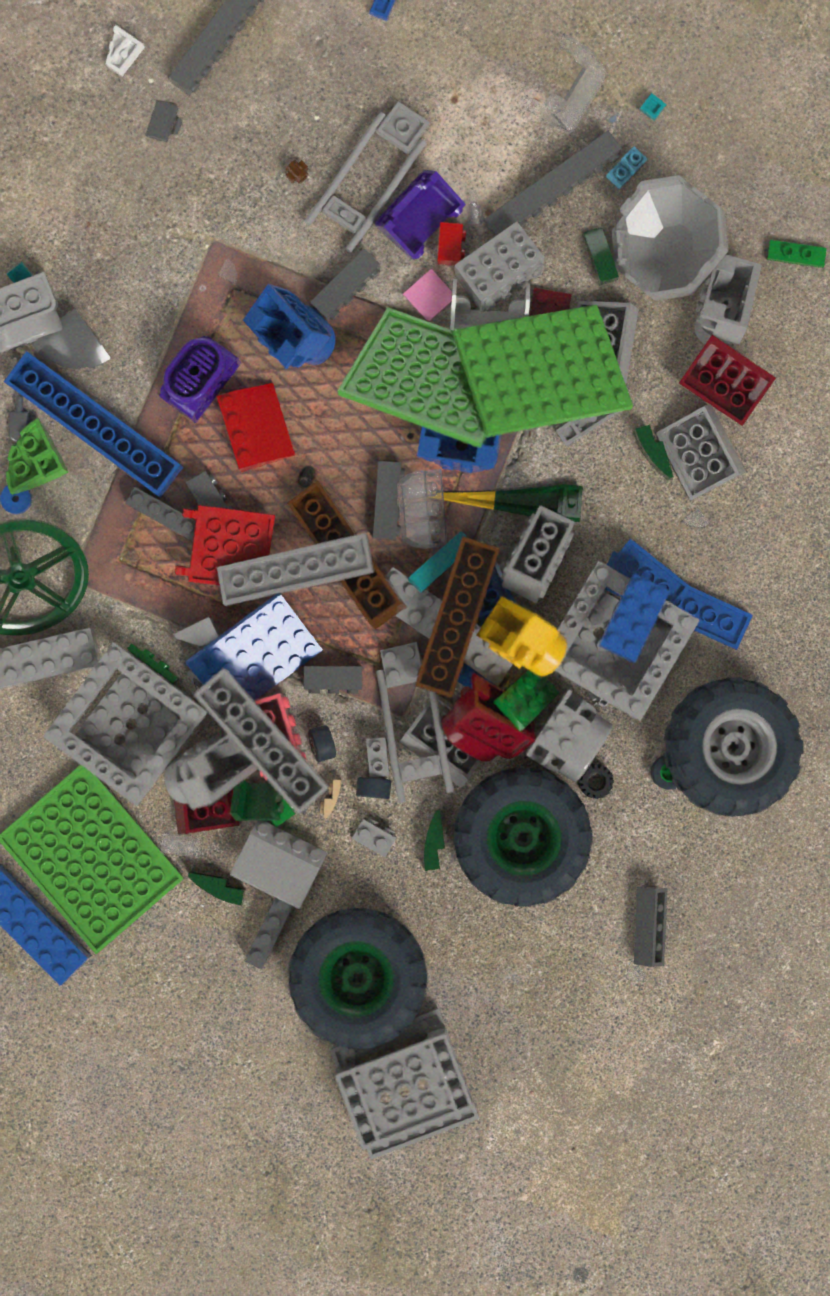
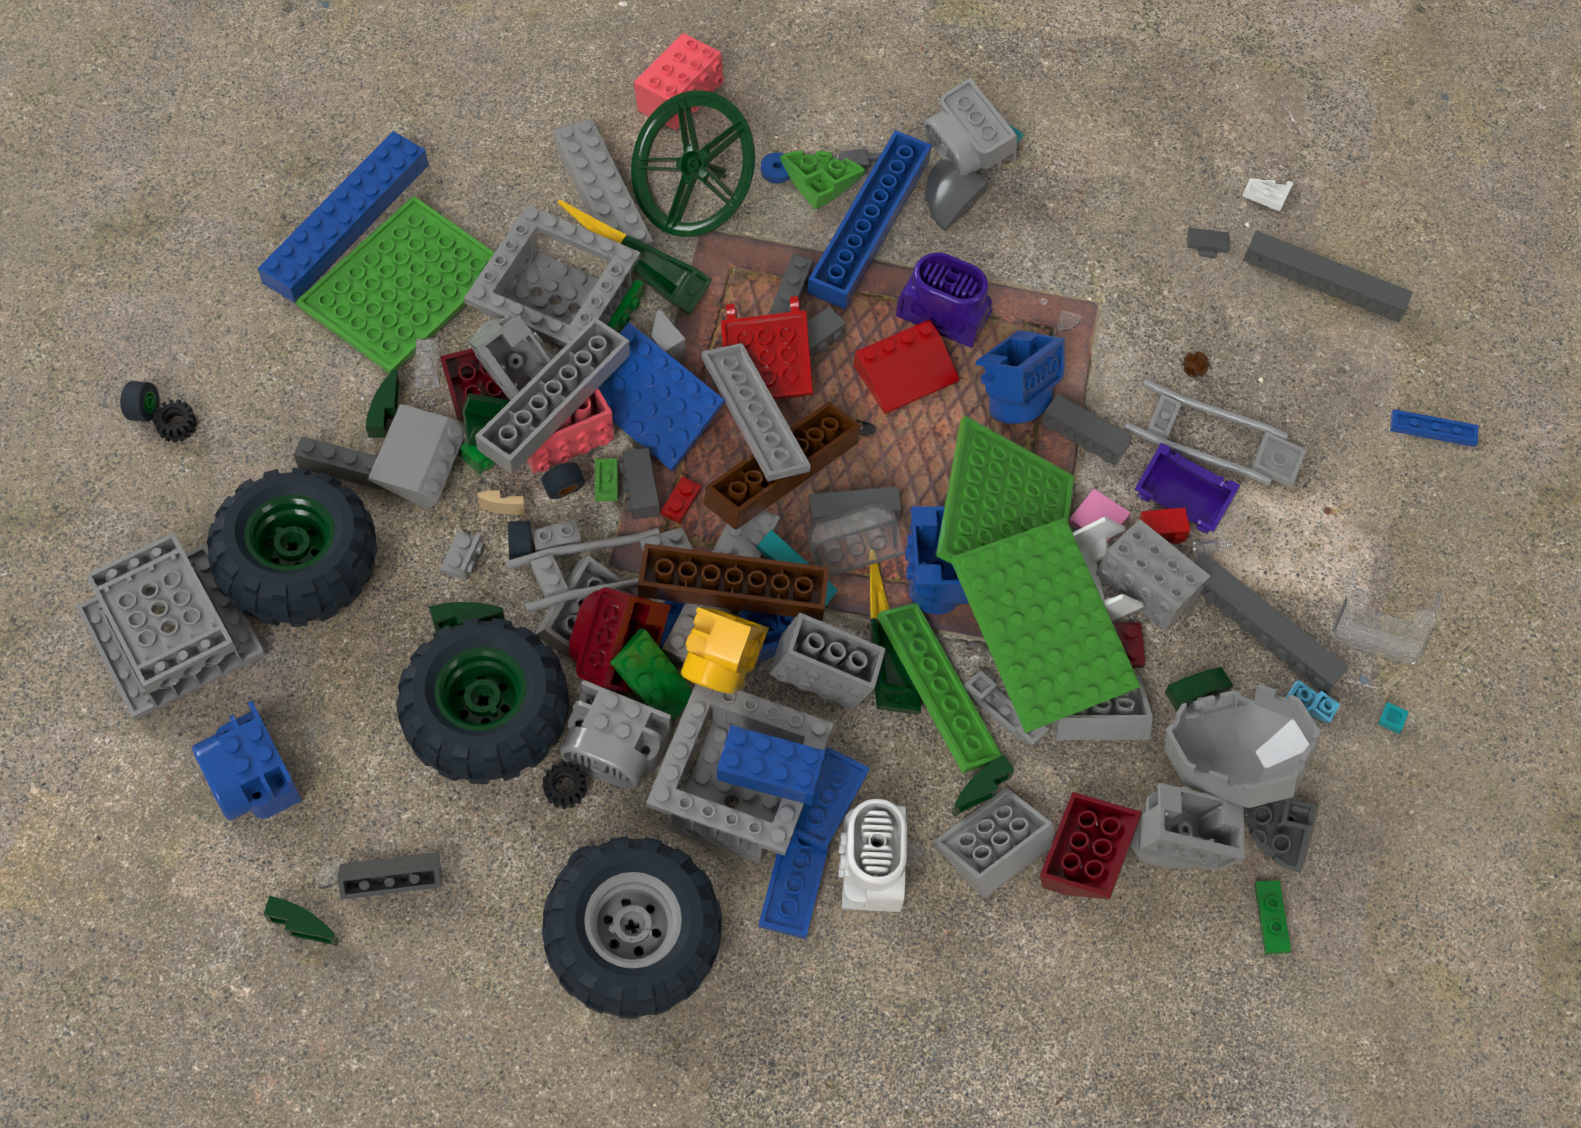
camera: 70 degrees right, 25 degrees down
(127, 620) = (668, 276): none -> dark green plate
(180, 1097) = (139, 401): none -> black wheel
(213, 1065) = (171, 410): none -> black tyre
(323, 706) = (606, 479): none -> bright green plate
(352, 646) = (681, 500): none -> red plate
(544, 1031) = (245, 769): none -> blue brick
(564, 467) = (939, 687): none -> bright green plate
(673, 998) = (298, 921): none -> dark green slope
(683, 551) = (872, 874): none -> white brick
(740, 222) = (1283, 830): none -> dark grey brick

